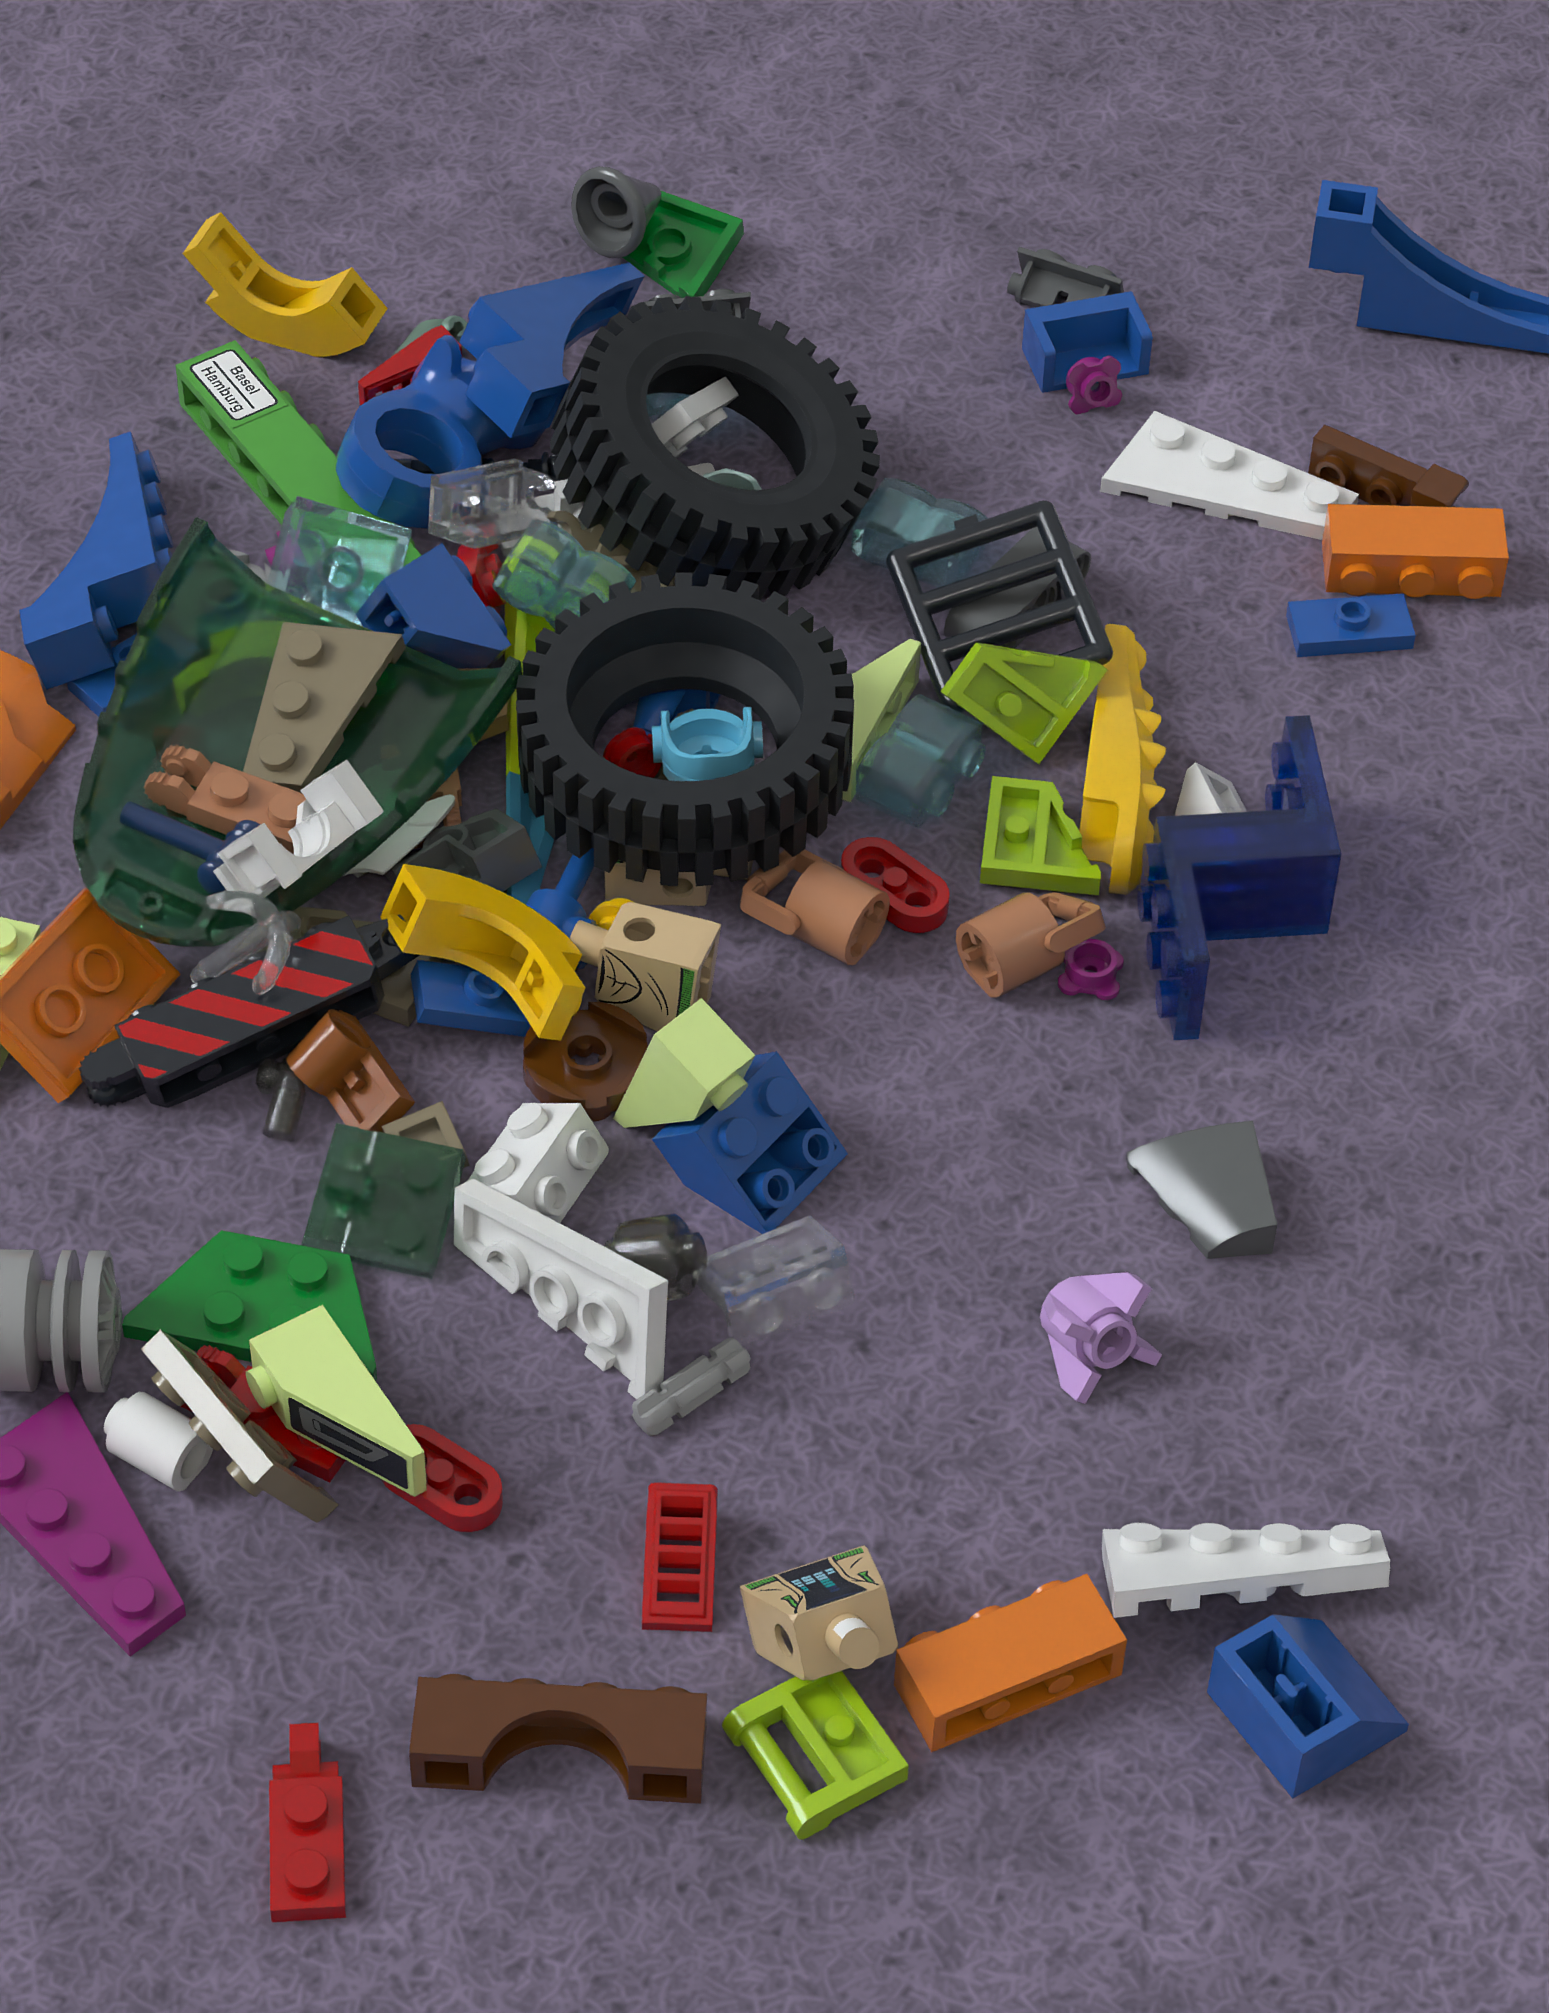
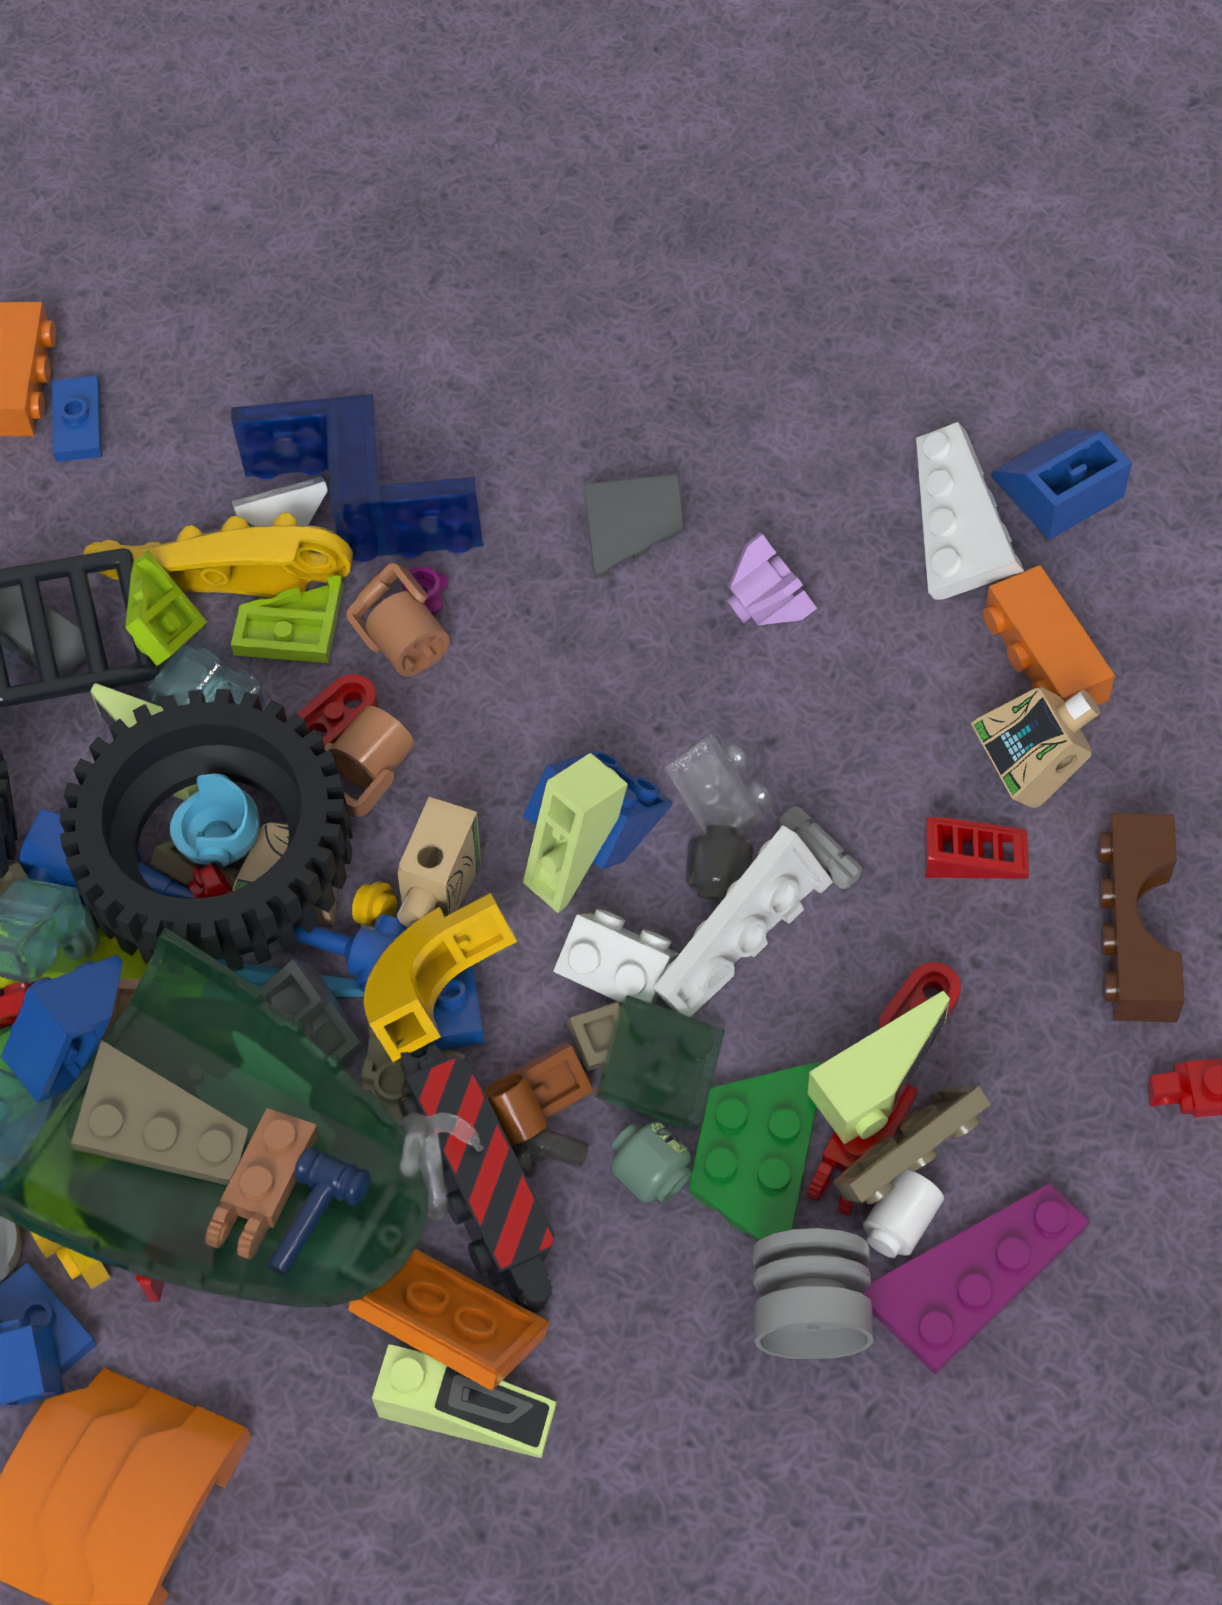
camera: 85 degrees left, 10 degrees up
(249, 1185) = (650, 1162): none -> sand green head
(333, 811) = (327, 1099): white piece -> none
(600, 1086) = (538, 925): reddish brown plate -> none
(835, 1735) = (1118, 746): lime plate -> none

